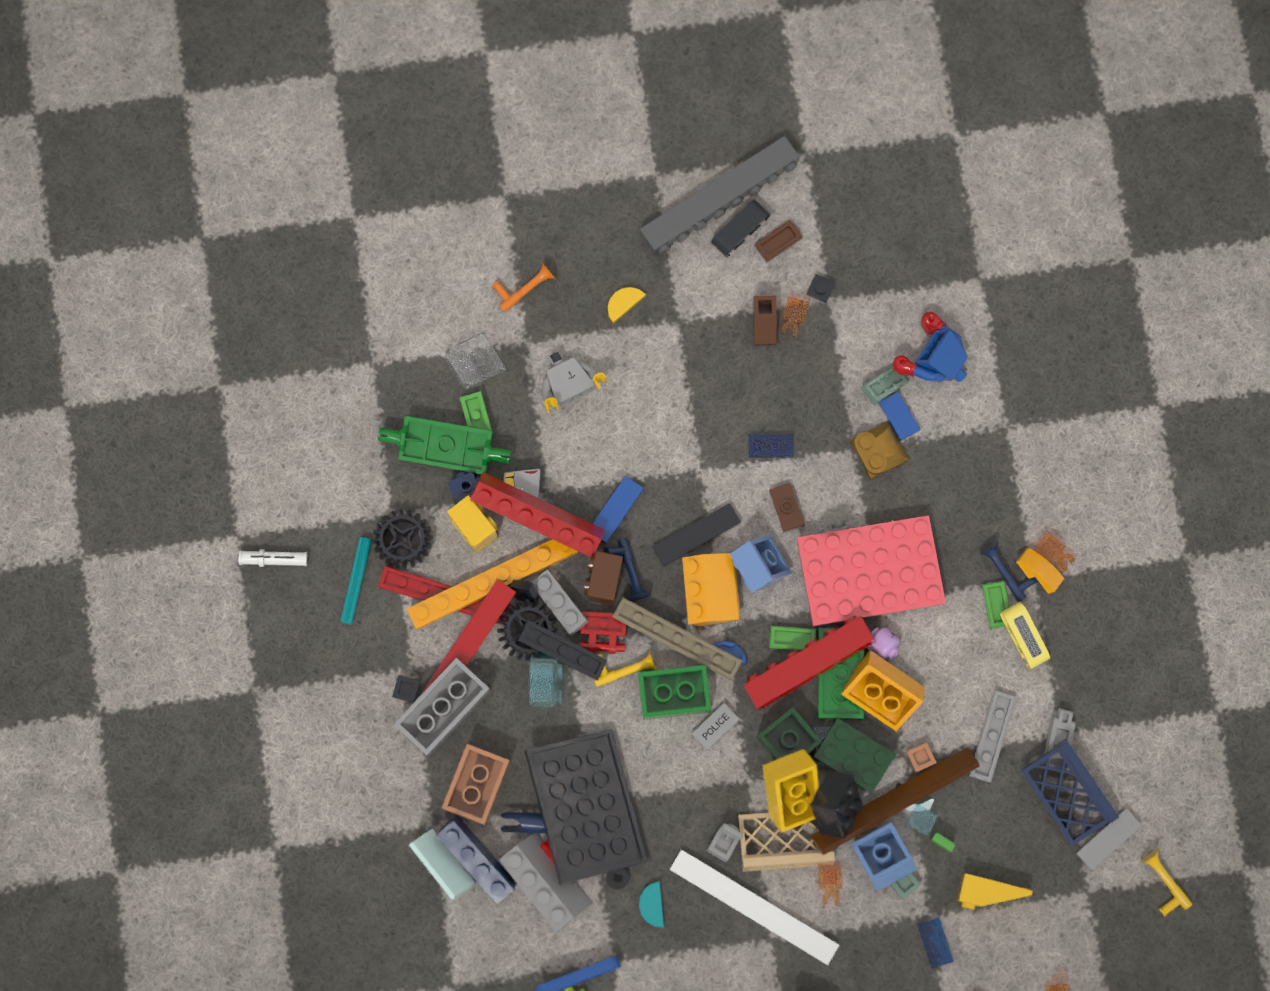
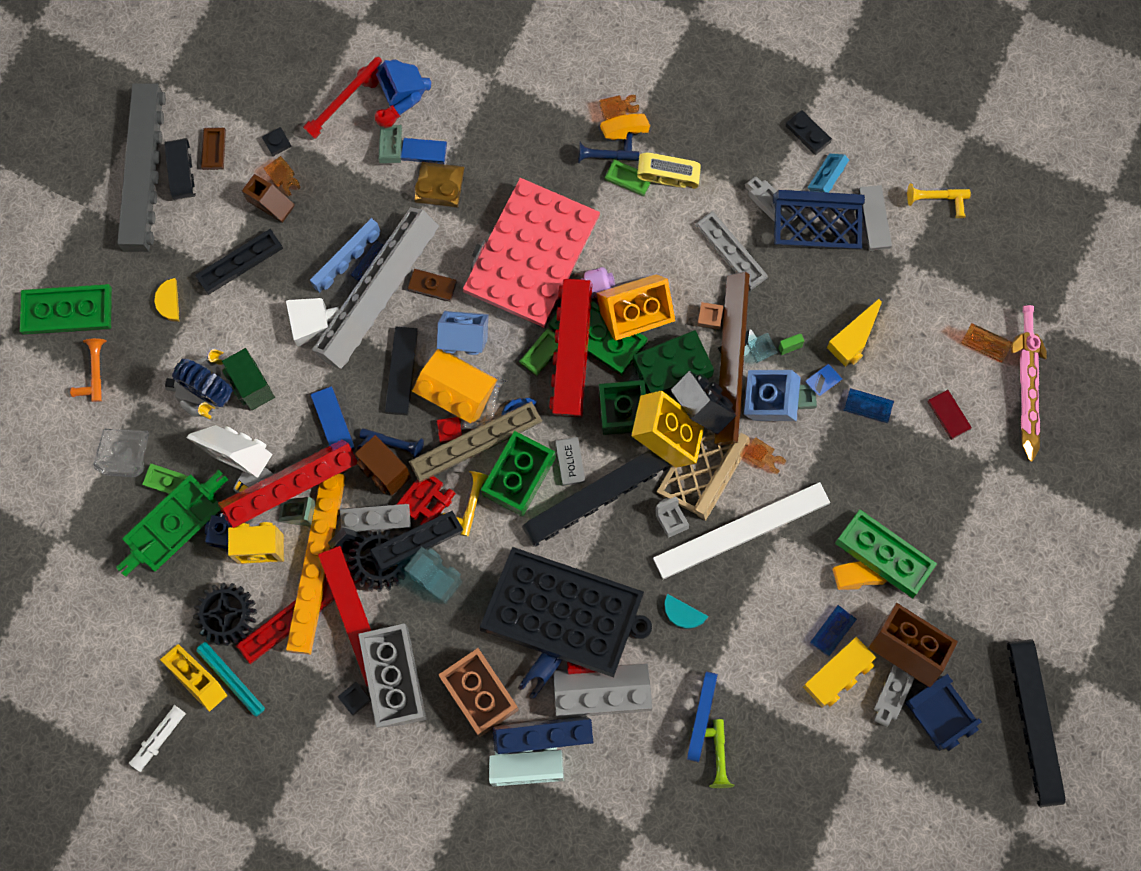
camera: 50 degrees left, 5 degrees down
(337, 551) = (194, 677): none -> yellow slope
(522, 537) = (297, 511): none -> sand green slope
(535, 449) = (233, 448): none -> white slope
(559, 227) = (65, 309): none -> green plate
(569, 387) = (202, 382): none -> dark blue gear
(600, 418) = (247, 379): none -> dark green brick
(673, 609) = (449, 429): none -> red plate
(687, 430) = (309, 319): none -> white torso
(695, 335) = (239, 261): none -> black plate
(697, 766) = (593, 496): none -> black beam
(751, 464) = (375, 288): none -> light grey brick
(753, 418) = (339, 262): none -> medium blue plate
(854, 311) = (314, 127): none -> red piece
(930, 890) = (823, 380): none -> blue sticker
(1119, 773) = (828, 173): none -> dark azure plate
(1147, 730) = (808, 132): none -> black plate

